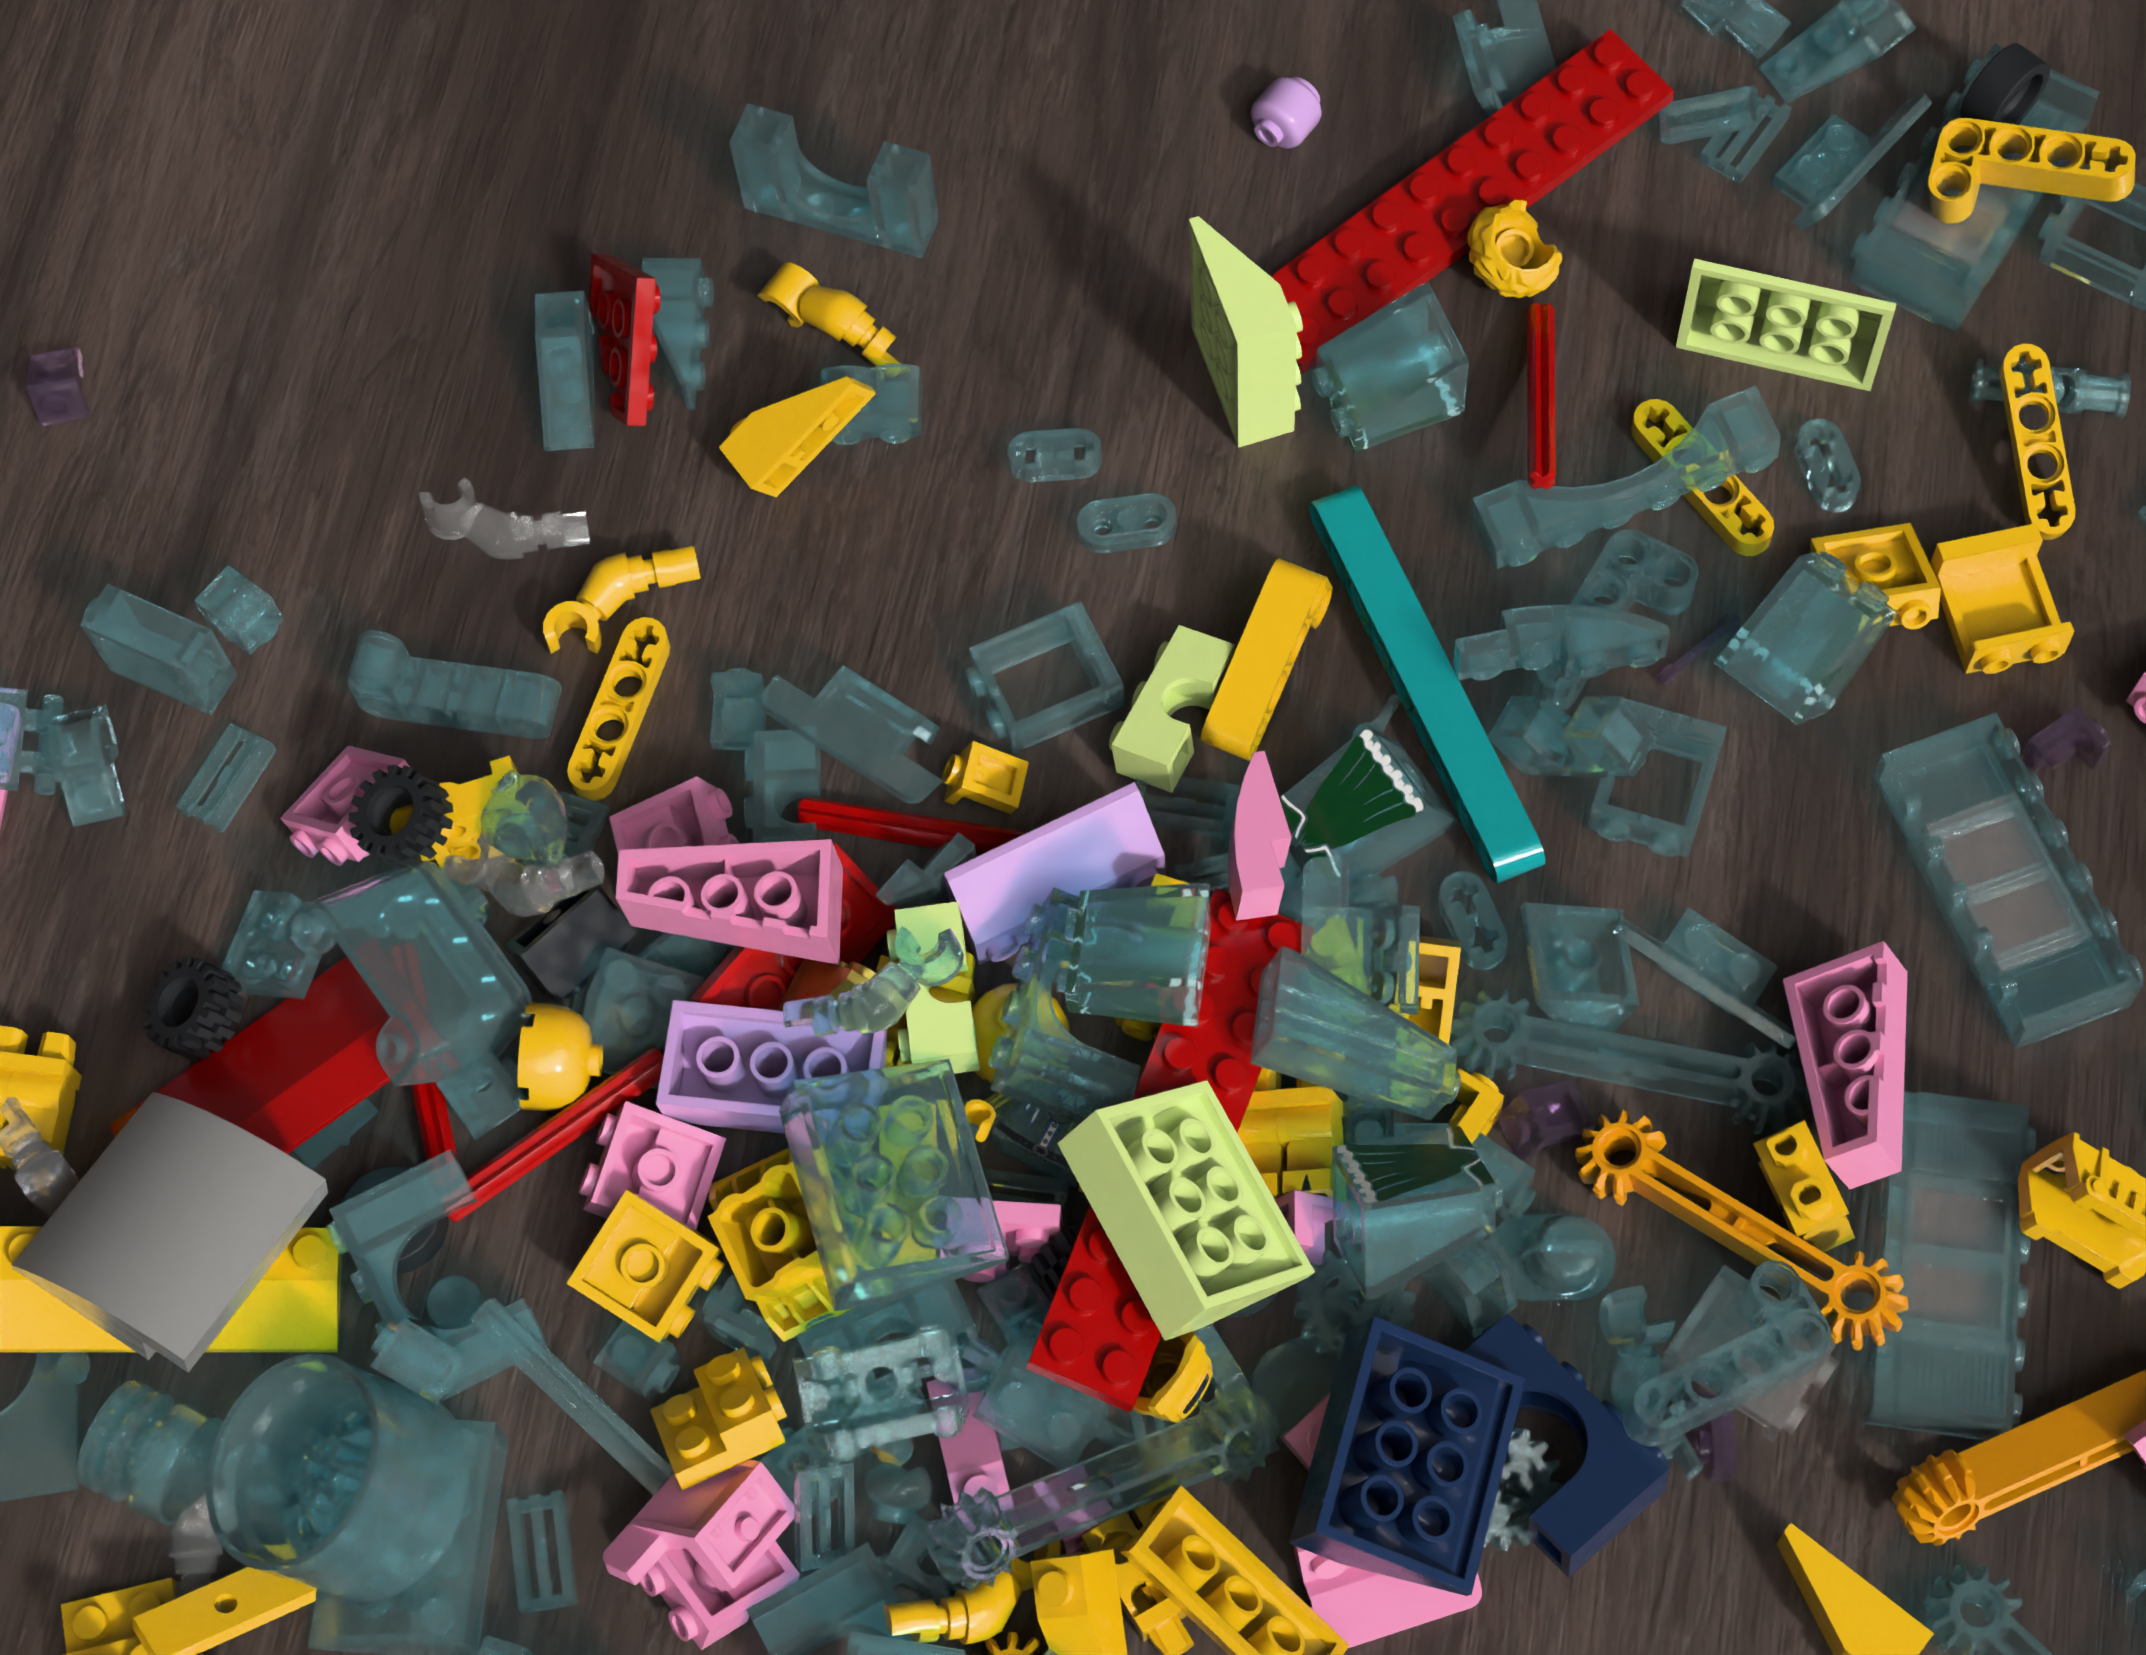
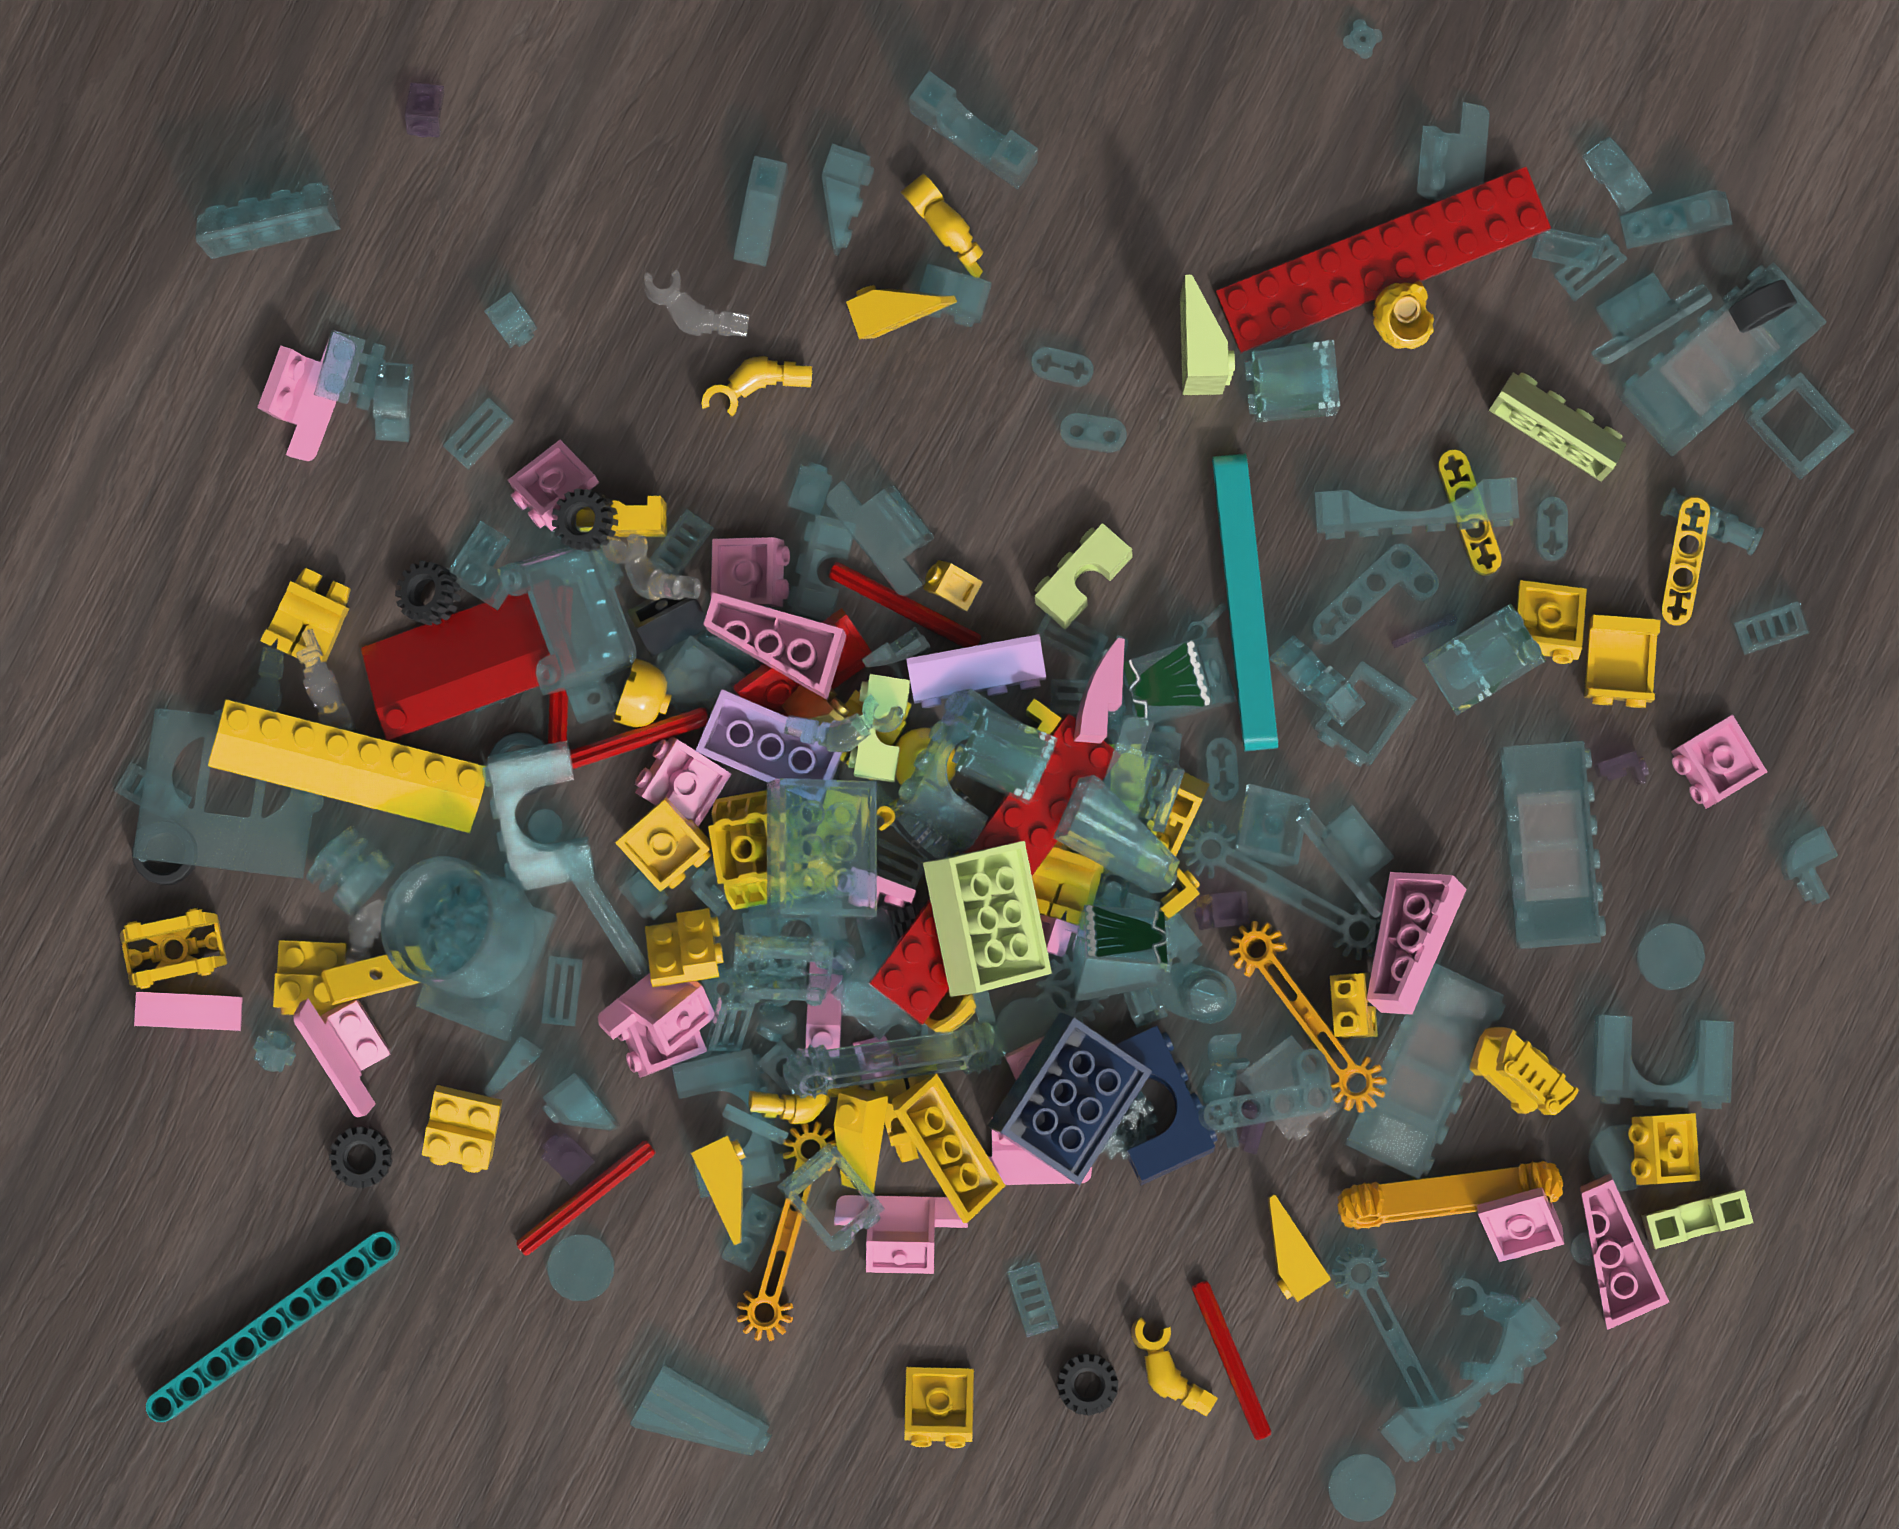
camera: 15 degrees right, 20 degrees up
(158, 649) = (454, 338): clear light blue window -> none
(172, 1229) = (393, 752): light grey slope -> none
(419, 1358) = (521, 871): clear light blue slope -> none
(449, 693) = (637, 424): clear light blue beam -> none
(526, 819) = (662, 543): clear light blue hat -> none
(611, 706) = (739, 464): yellow beam -> none
(625, 309) = (807, 196): red plate -> none
(1030, 640) = (1043, 521): clear light blue window -> none
(1264, 657) = (1150, 559): yellow beam -> none
(1286, 112) = (1291, 156): lavender head -> none
(1541, 396) = (1384, 429): red axle -> none
(1579, 636) = (1346, 616): clear light blue slope -> none
(2030, 171) = (1757, 370): yellow beam -> none

